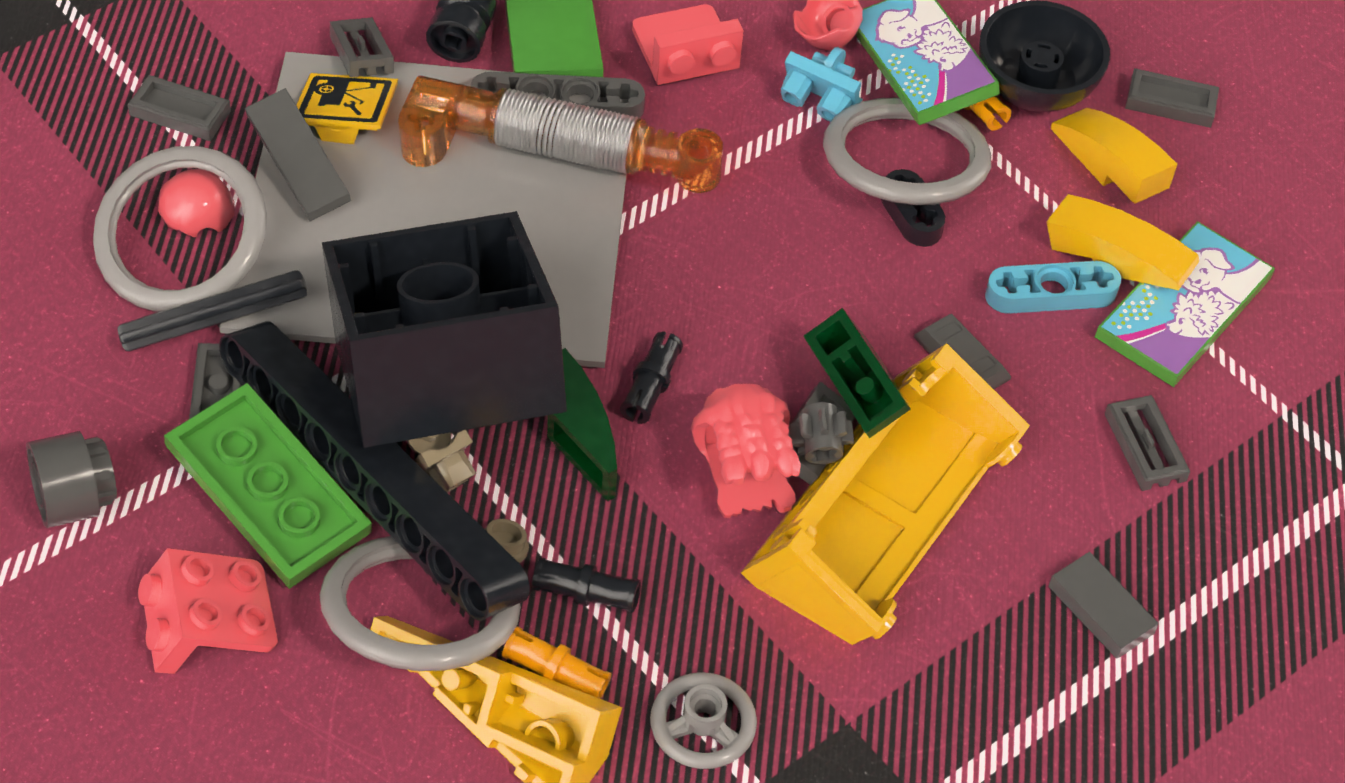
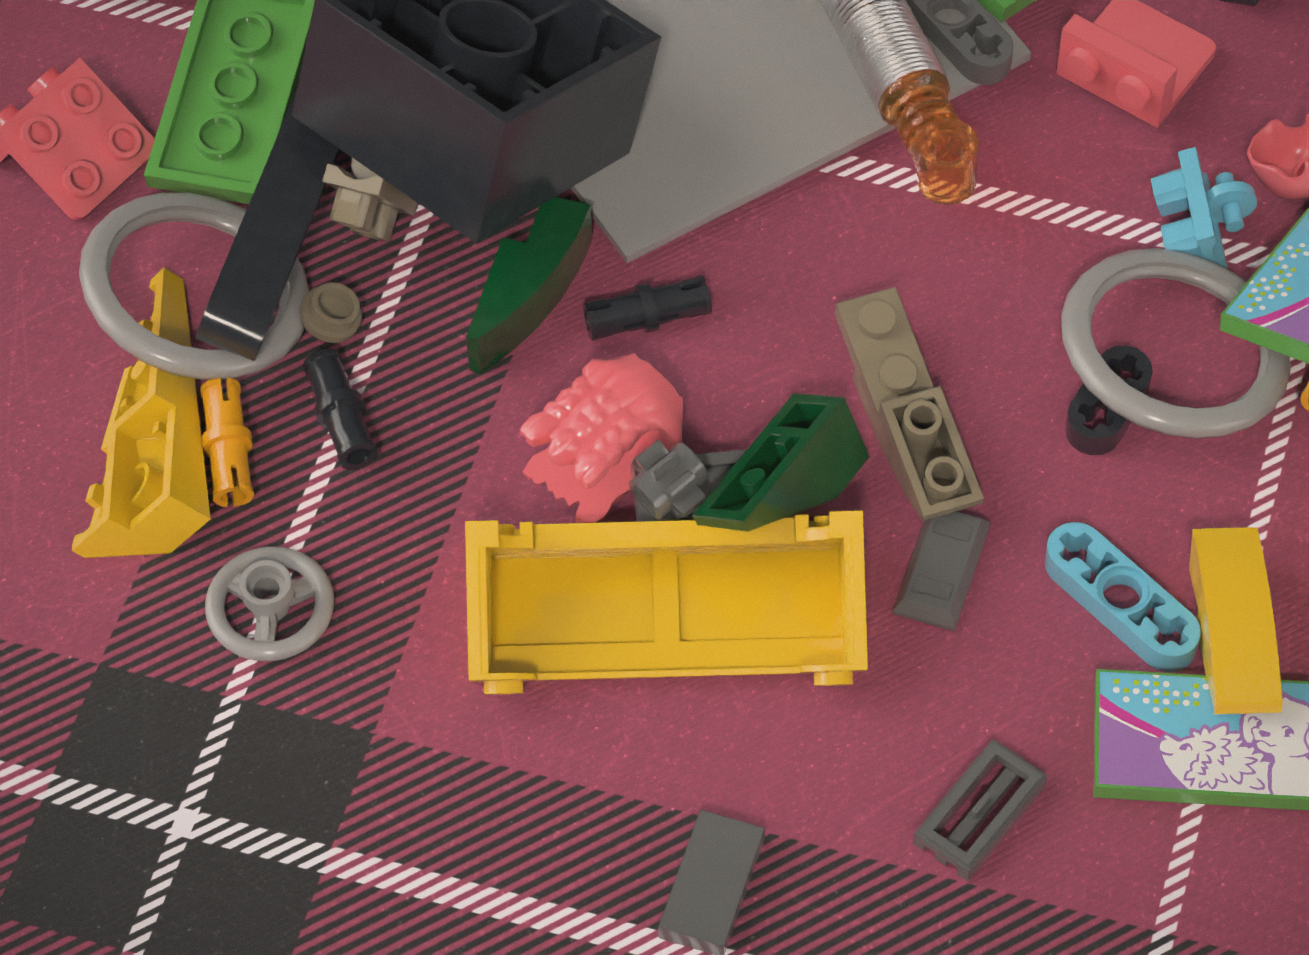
camera: 60 degrees right, 5 degrees up
(872, 300) = (905, 407): none -> dark tan slope

